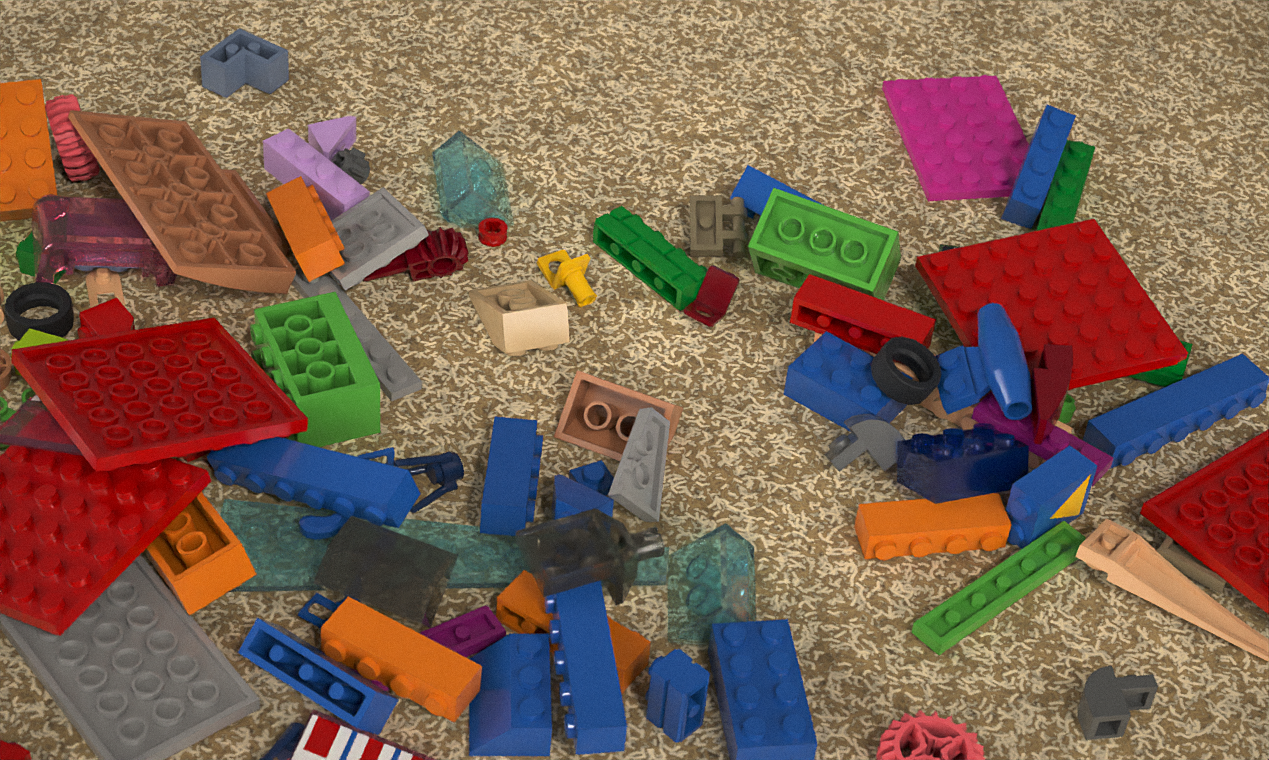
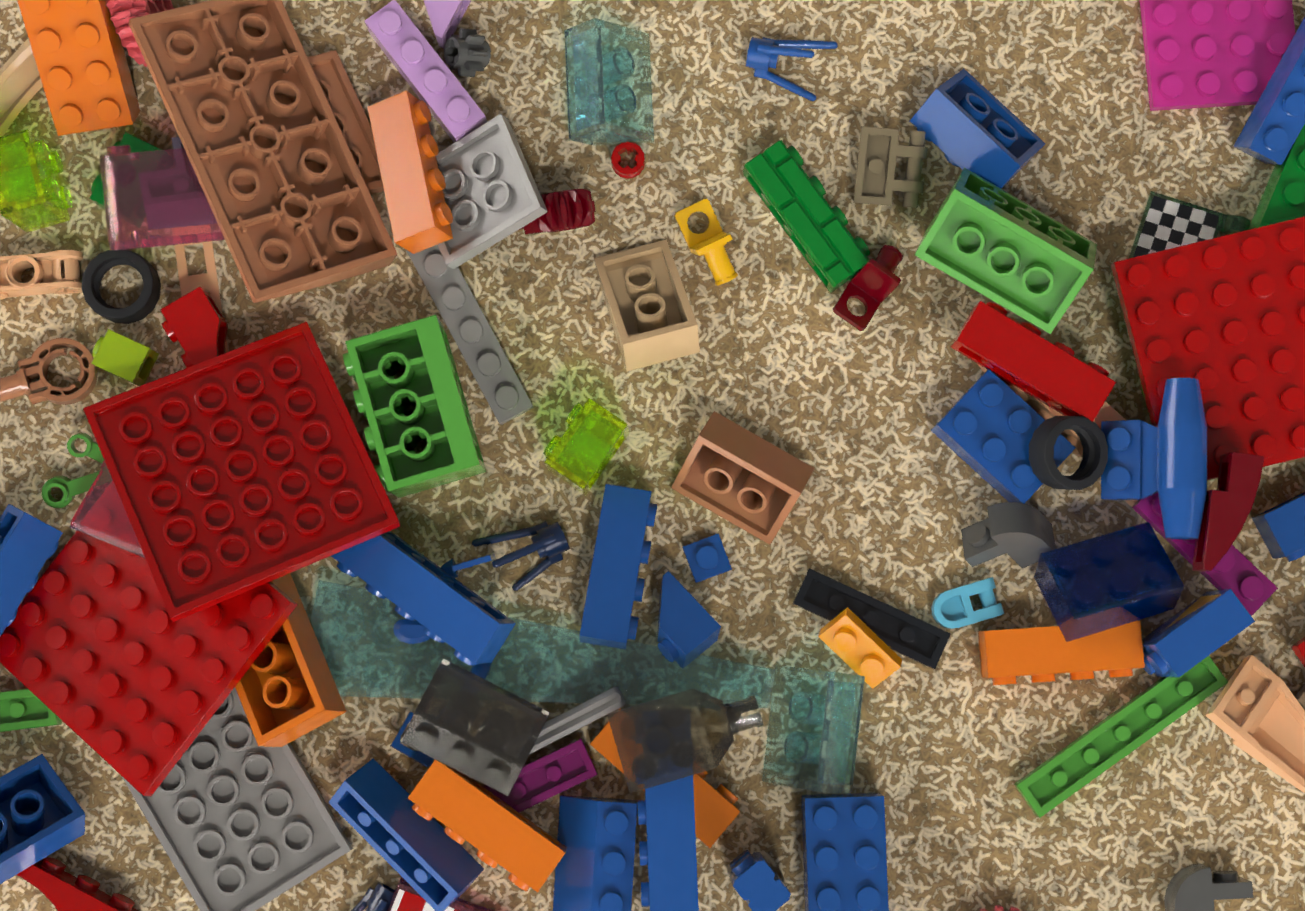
camera: 10 degrees right, 40 degrees up
(474, 392) = (585, 446): none -> clear neon green brick
(474, 589) = (579, 717): none -> light grey axle
(603, 166) = (765, 54): none -> blue plant
(642, 466) = (758, 572): light grey wing -> none
(749, 525) = (860, 647): none -> light orange plate
(753, 514) = (896, 628): none -> black plate
(829, 502) = (954, 609): none -> medium azure plate

